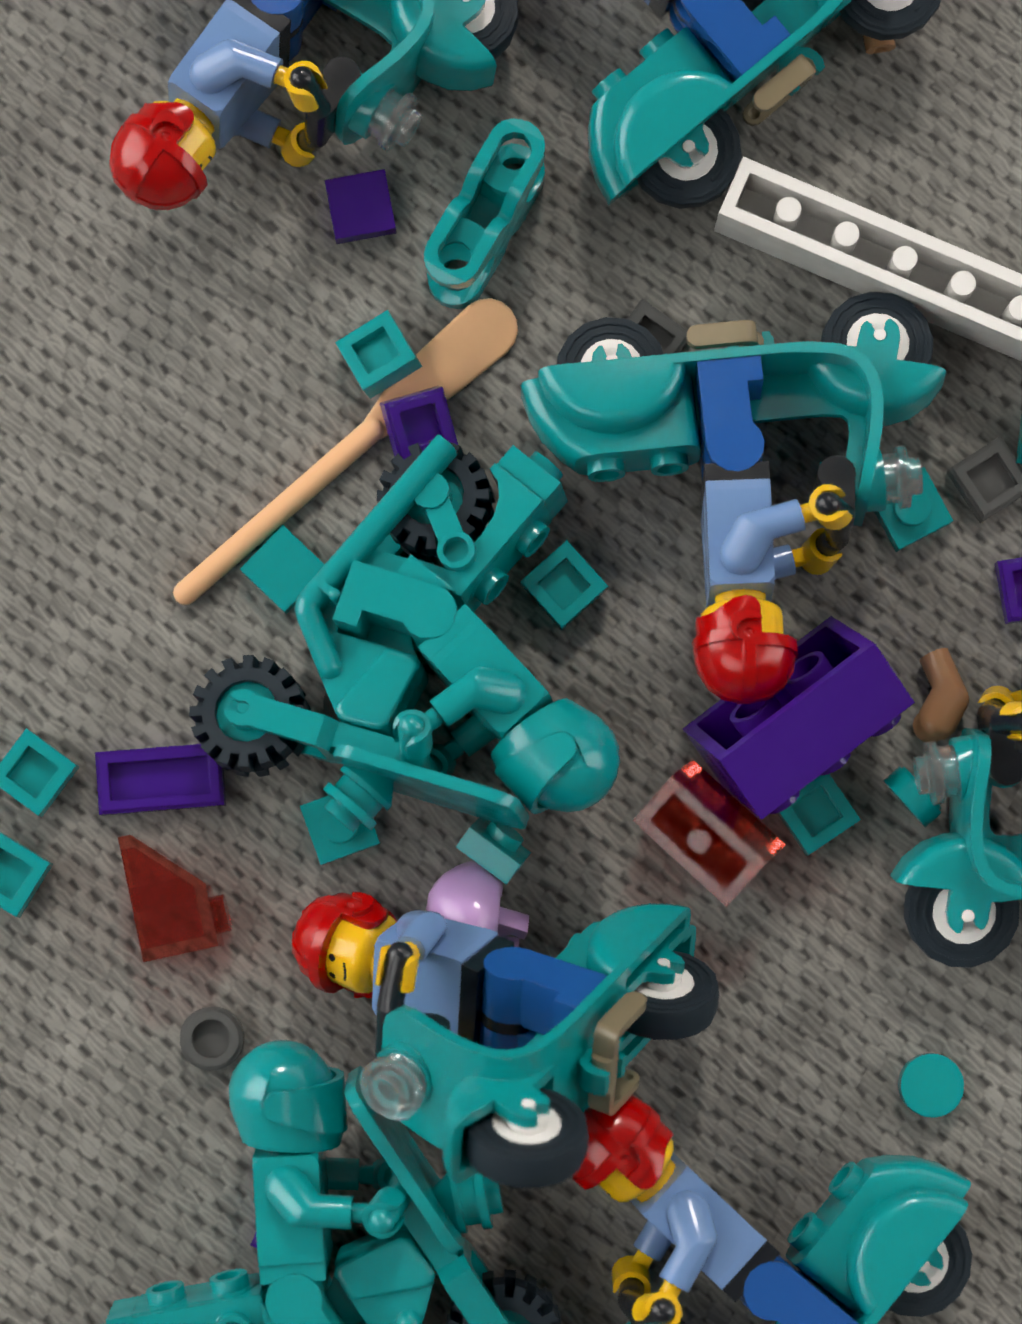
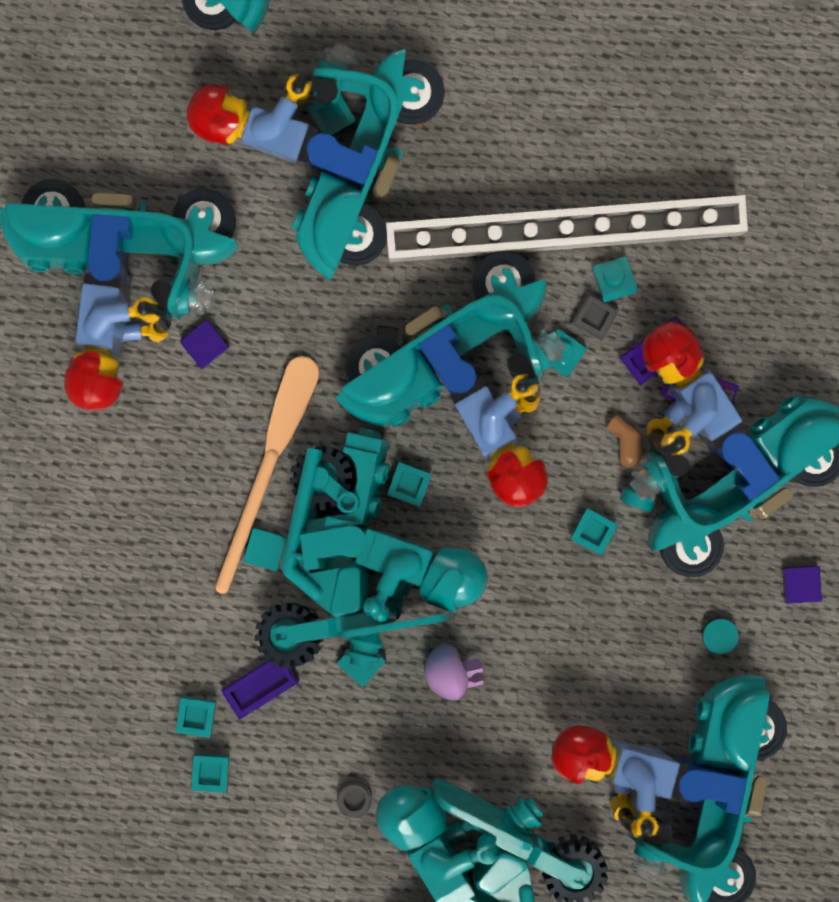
camera: 30 degrees left, 5 degrees up
(171, 904) = (298, 745): clear red slope -> none
(378, 354) = (254, 416): teal plate -> none
(417, 420) = (293, 440): dark purple tile -> none
(485, 213) = (270, 319): teal piece -> none
(494, 848) = (444, 635): teal plate -> none
(501, 1043) = (515, 717): piece -> none
(709, 832) = (547, 572): clear red brick -> none
(827, 709) = (574, 484): dark purple brick -> none

